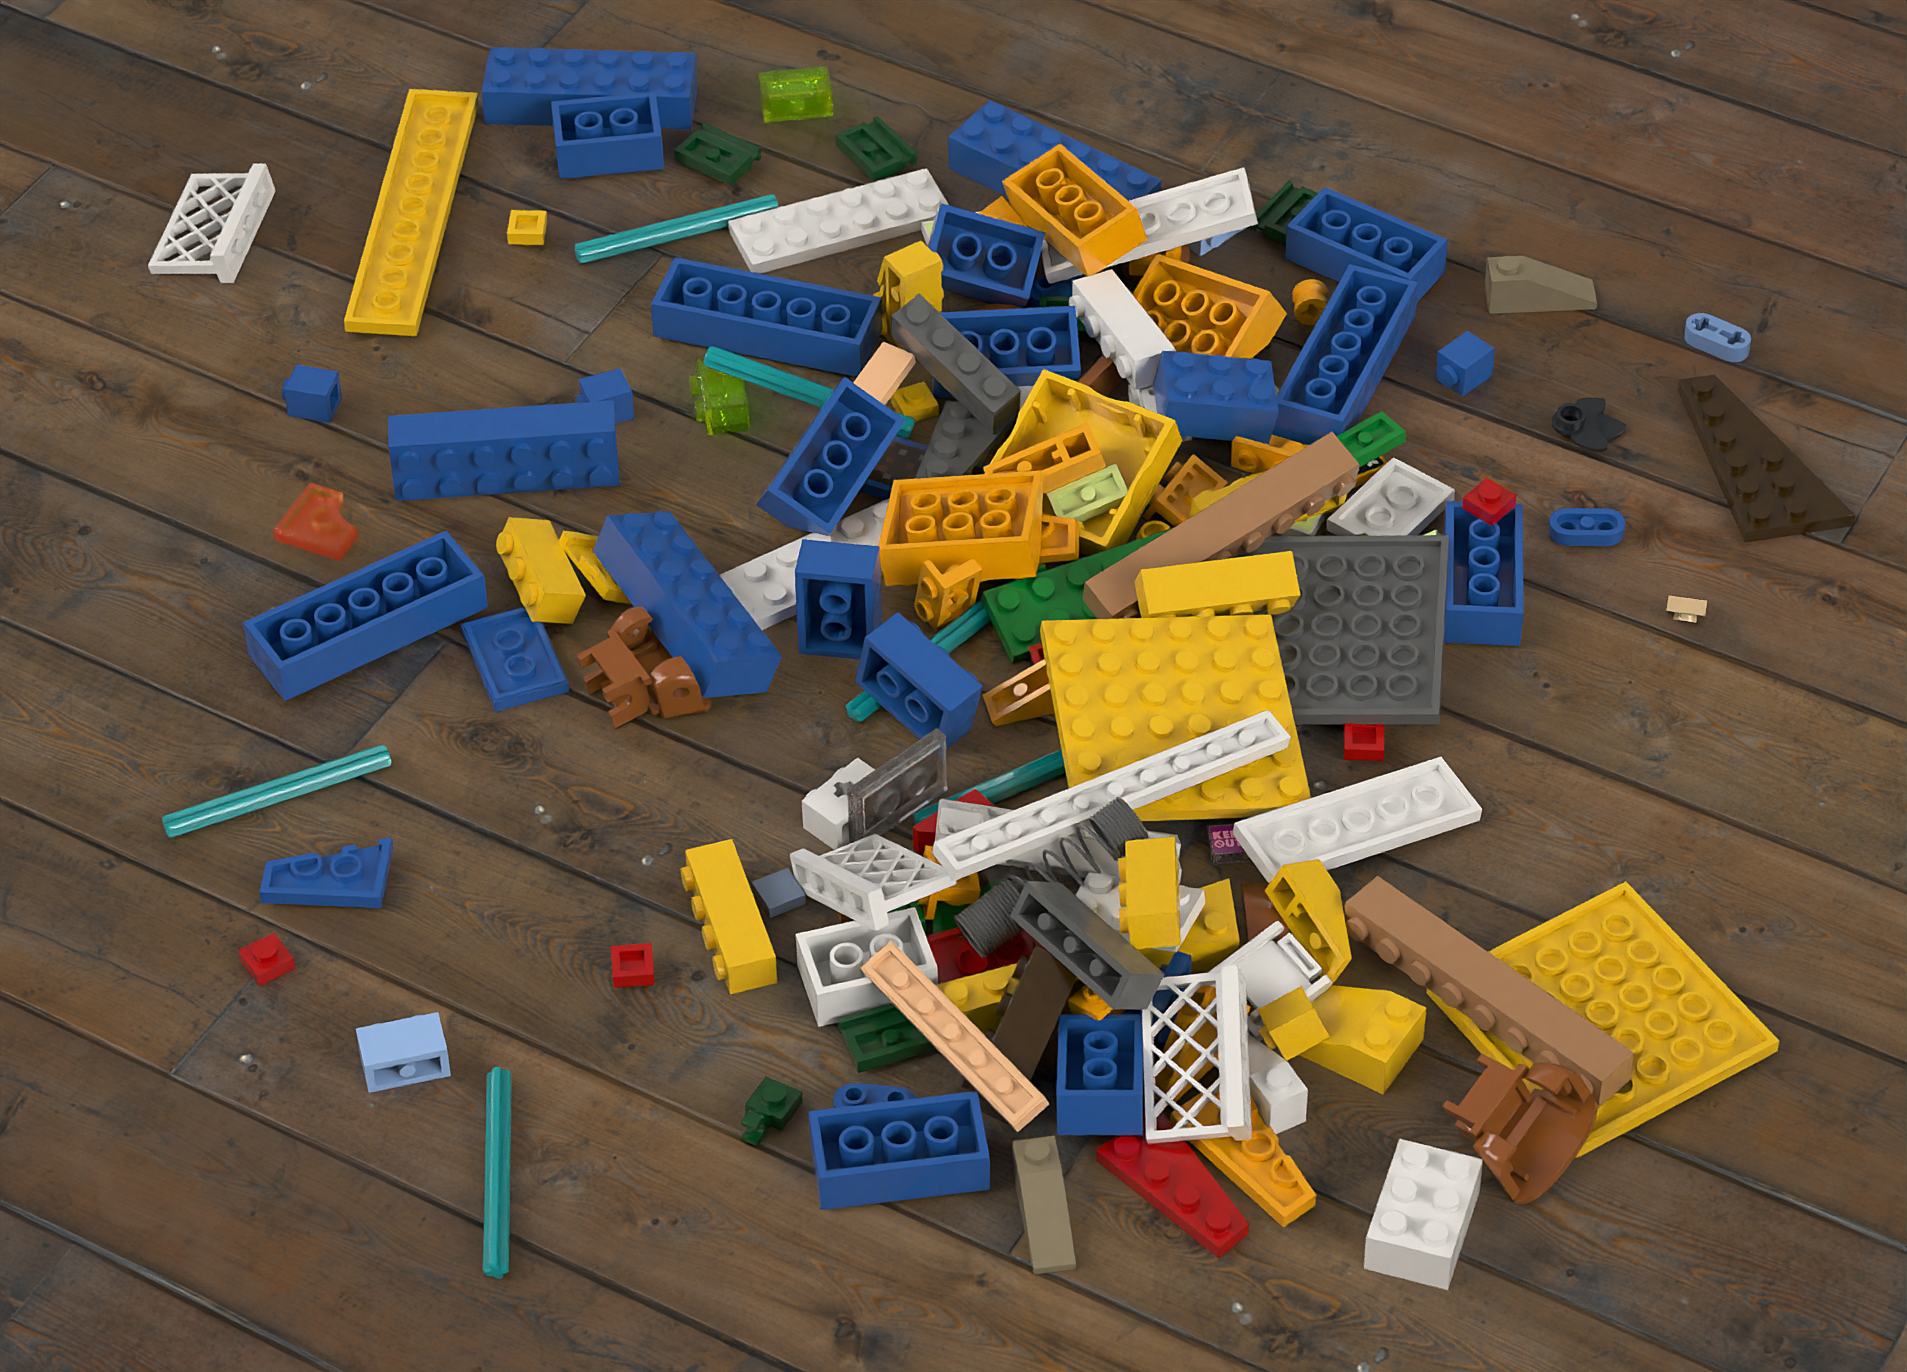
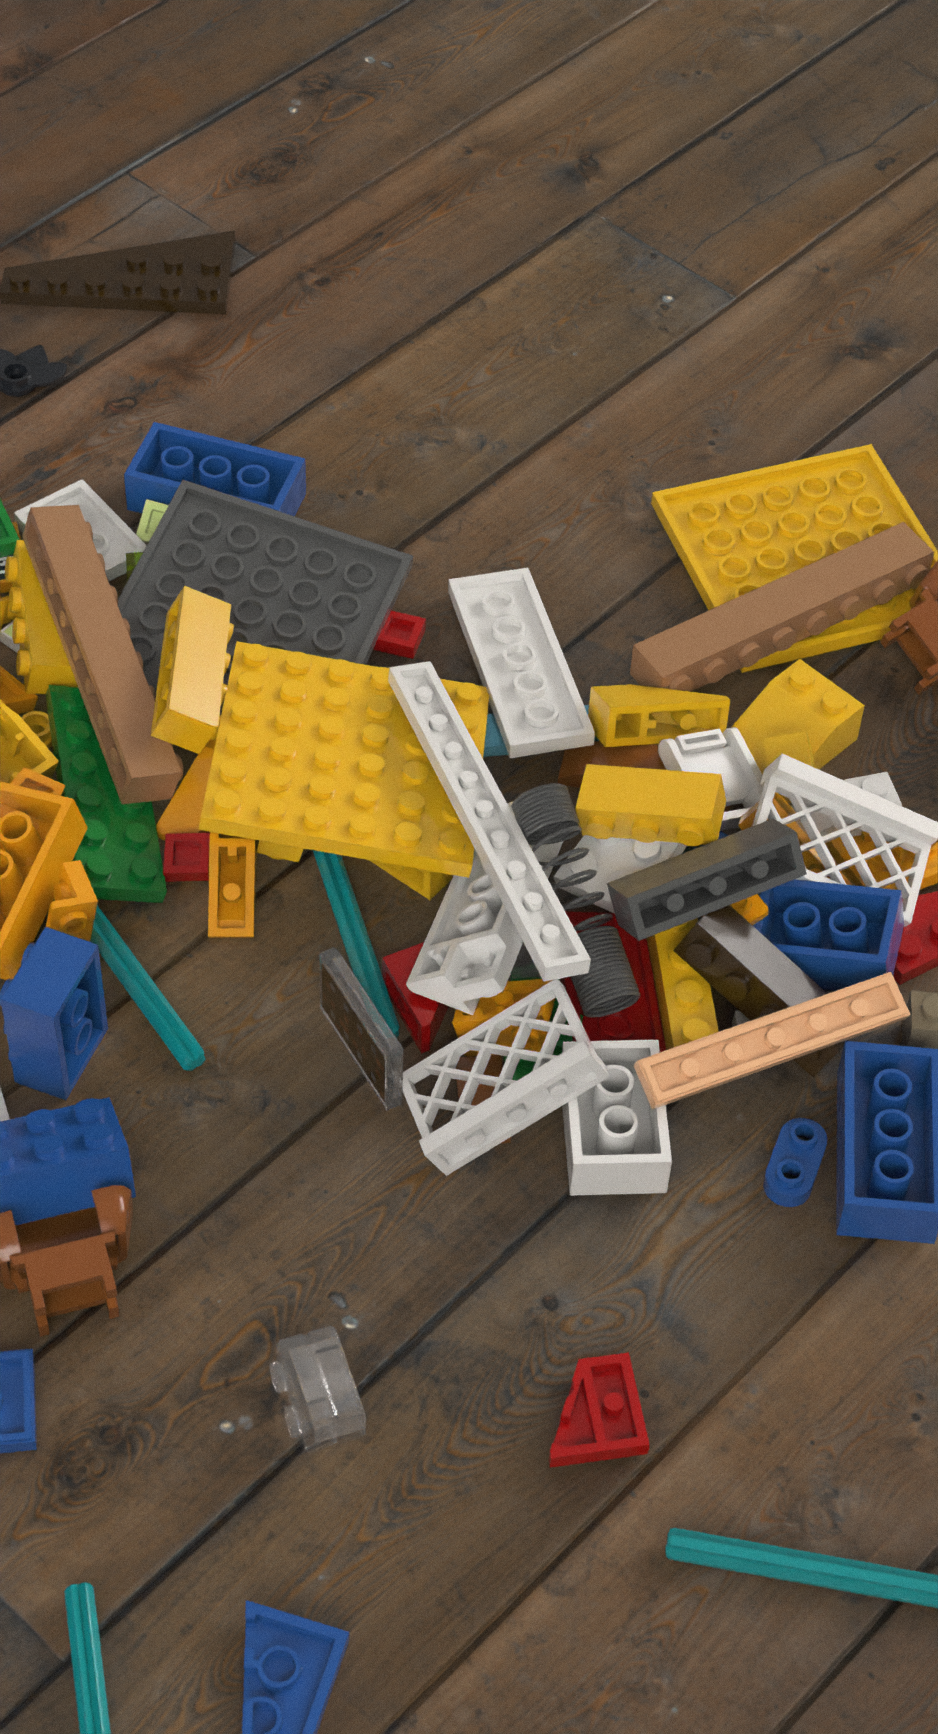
camera: 80 degrees left, 5 degrees up
(403, 1052) = (618, 1647): light blue brick -> none
(573, 843) = (319, 1389): none -> clear brick
(598, 1013) = (600, 1414): none -> red wing
(632, 965) = (533, 1361): red plate -> none
(729, 916) = (488, 1242): yellow brick -> none
(768, 1106) = (780, 1262): dark green plate -> none
(778, 892) = (453, 1191): sand blue tile -> none
(827, 807) = (346, 1092): white brick -> none
(881, 1037) = (705, 1132): dark green plate -> none
(917, 681) = (213, 969): blue brick -> none
(1224, 846) = (506, 772): tile -> none
(1489, 501) = (146, 440): red plate -> none
(1586, 527) = (171, 401): blue plate -> none
(1686, 608) = (309, 364): tan plate -> none

